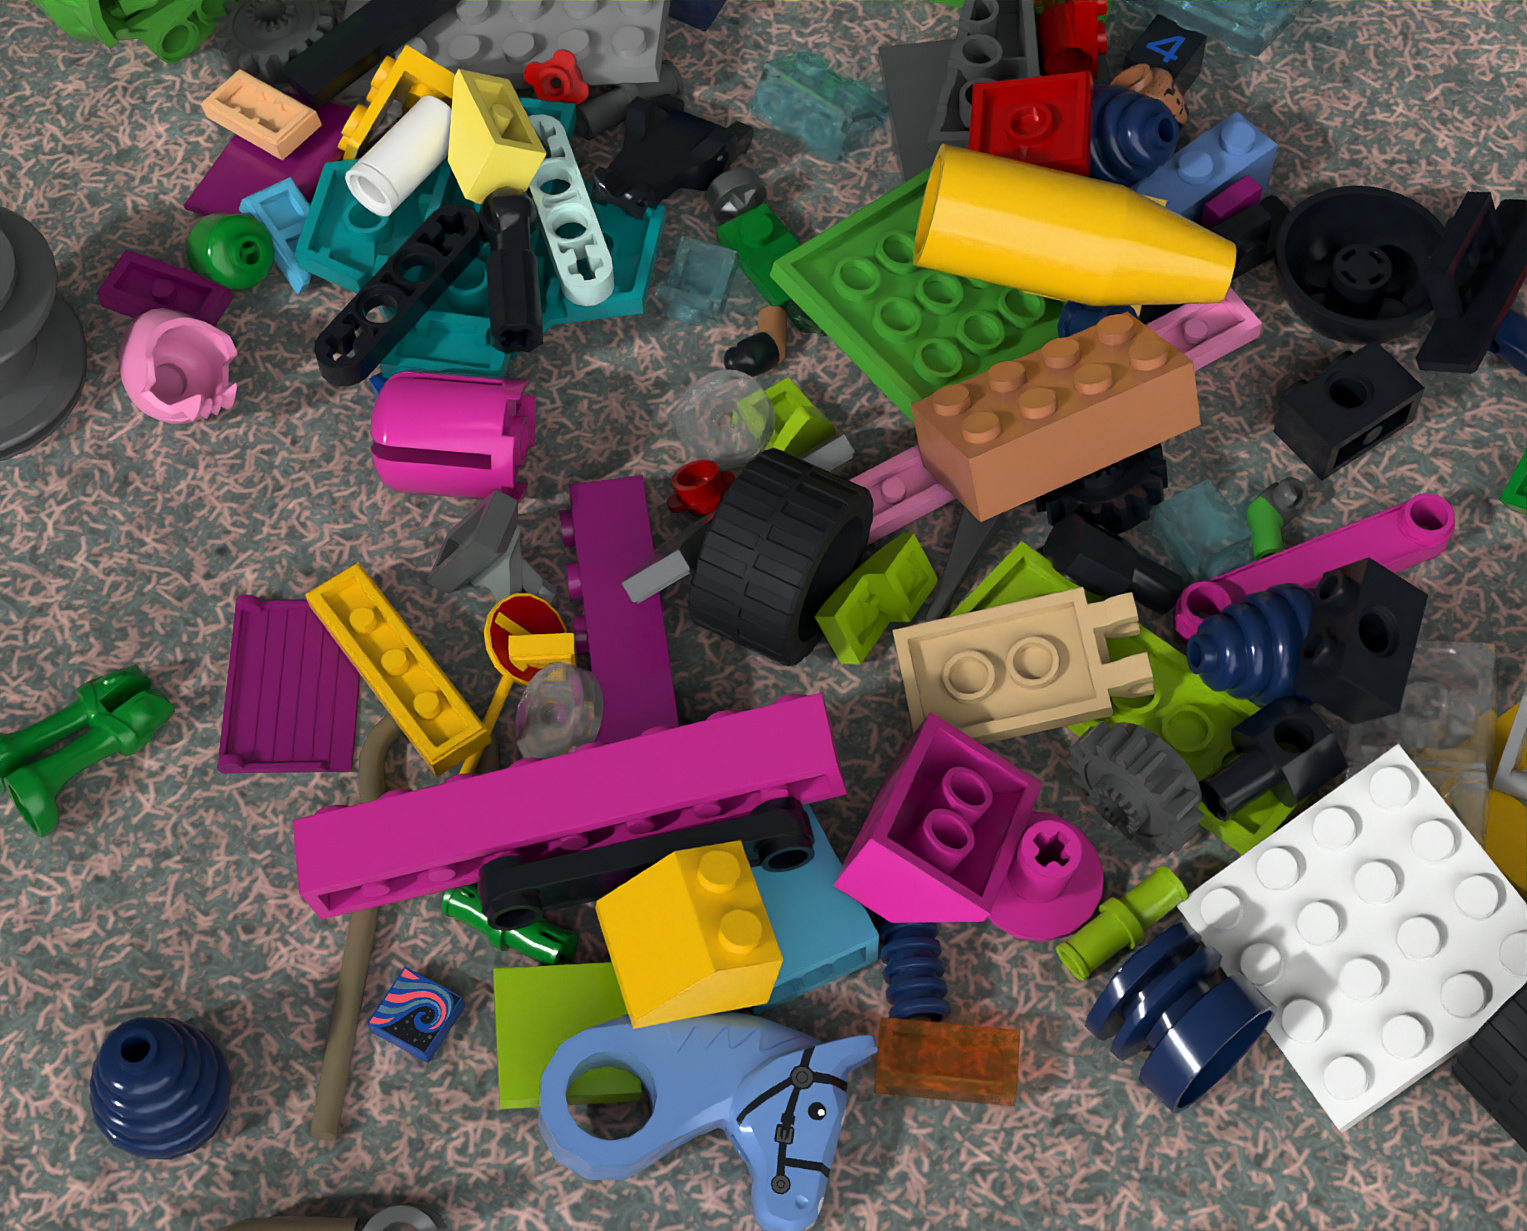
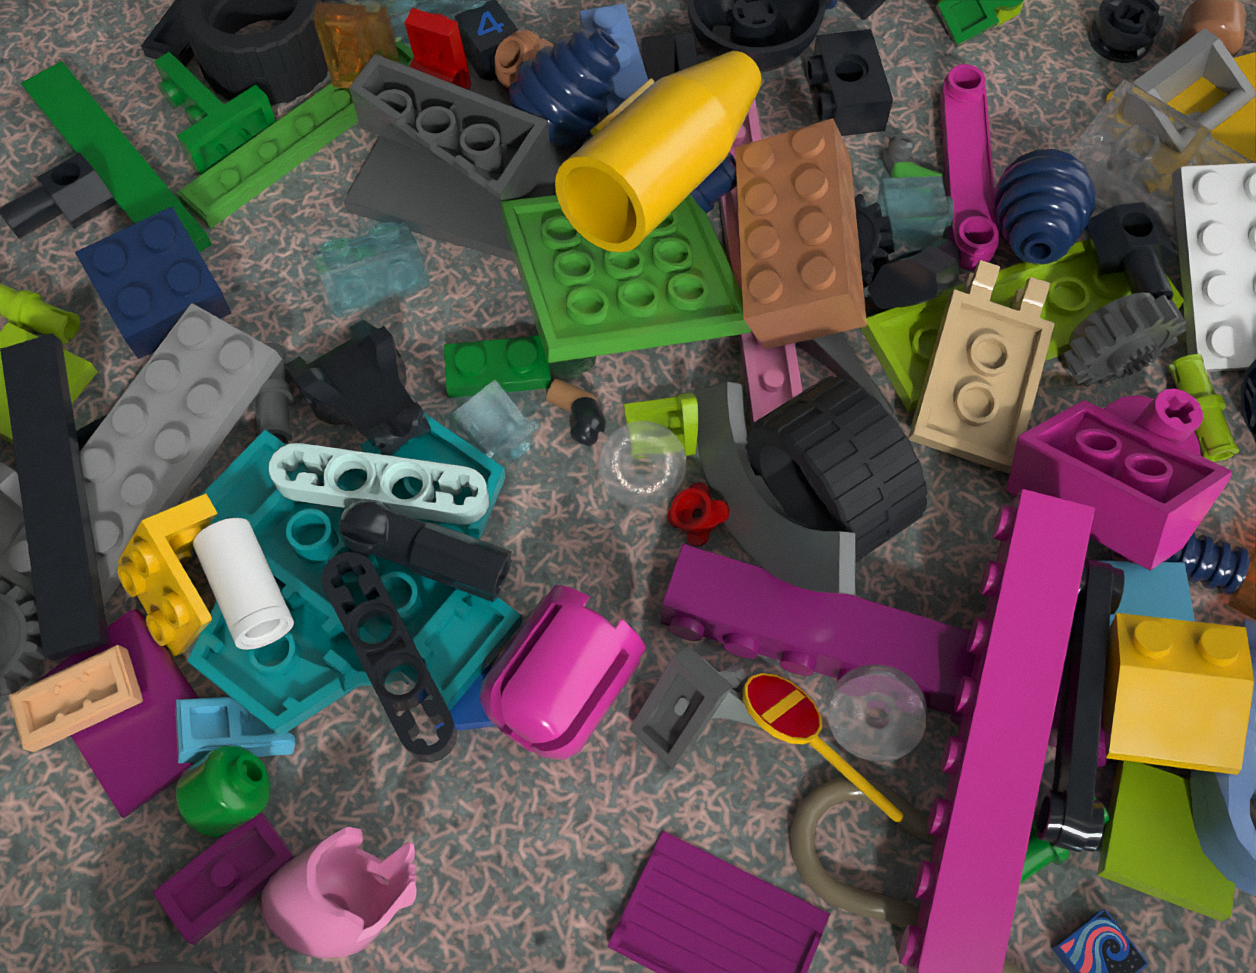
camera: 65 degrees left, 5 degrees up
(398, 669) = (764, 827): yellow tile -> none
(490, 137) = (284, 501): light yellow slope -> none
(541, 650) = (818, 695): yellow tile -> none
(564, 67) = (222, 421): red plate -> none
(735, 192) = (425, 359): flat silver tile -> none
(1036, 120) = (546, 116): red tile -> none
(1231, 201) = (657, 54): magenta tile -> none
(1360, 641) = (1100, 143): black brick -> none

